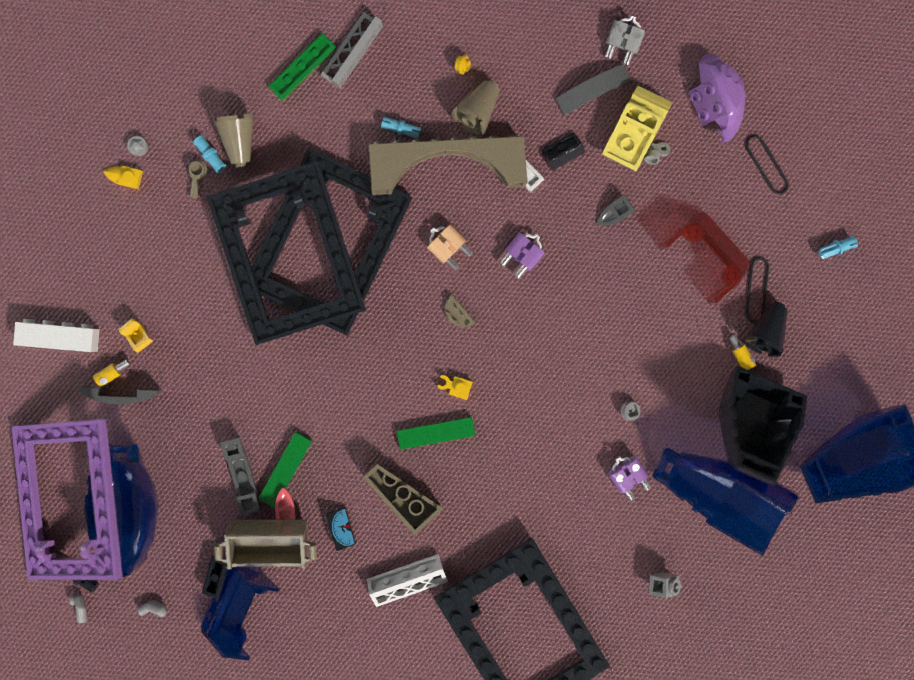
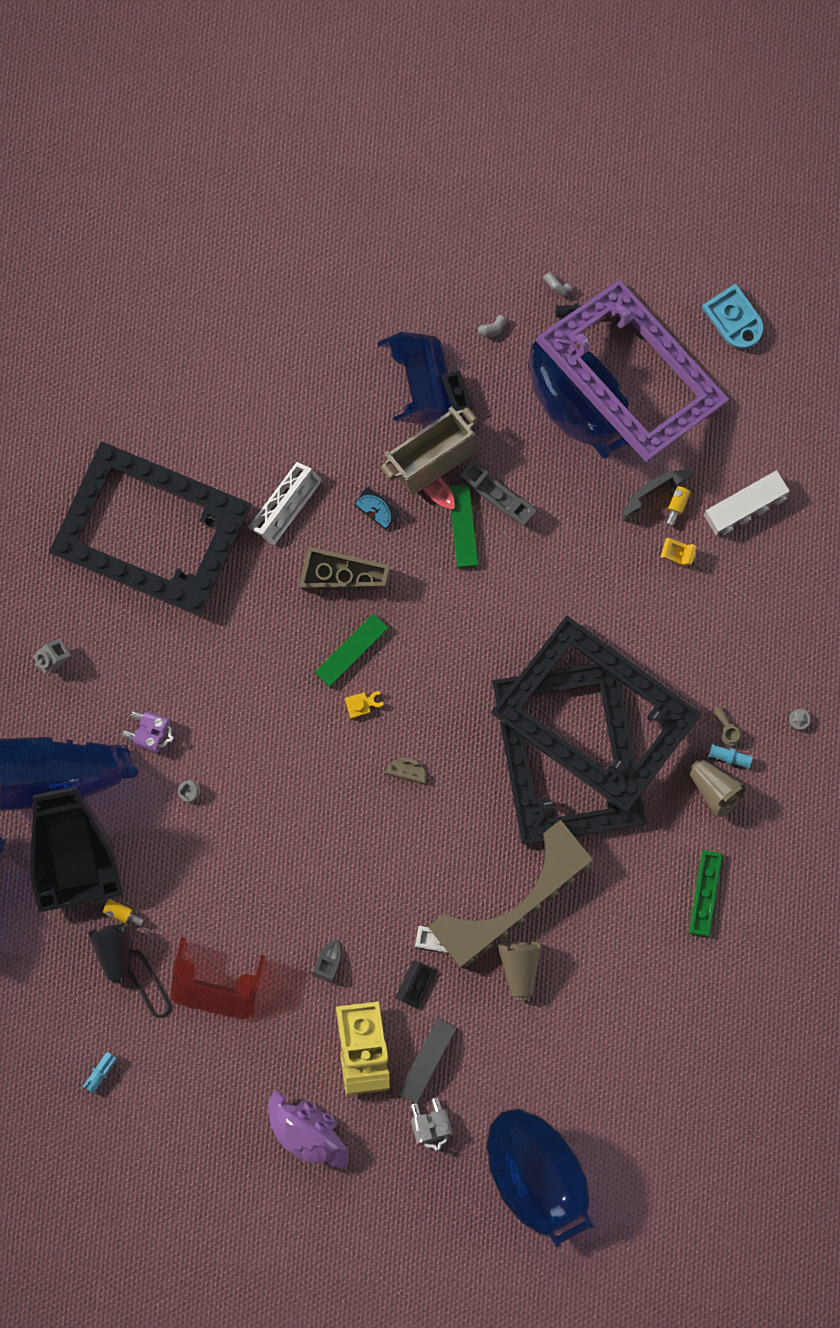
camera: 145 degrees right, 10 degrees down
(124, 176) = (792, 685): yellow plate -> none
(356, 52) = (664, 945): light grey fence -> none
(401, 127) = (577, 901): medium azure pin -> none
(447, 244) = (460, 824): light nougat piece -> none
(462, 64) = (562, 997): yellow plate -> none
(524, 252) = (386, 866): medium lavender piece -> none
(654, 152) = (331, 1042): light grey piece -> none
(760, 169) = (213, 1113): black piece -> none

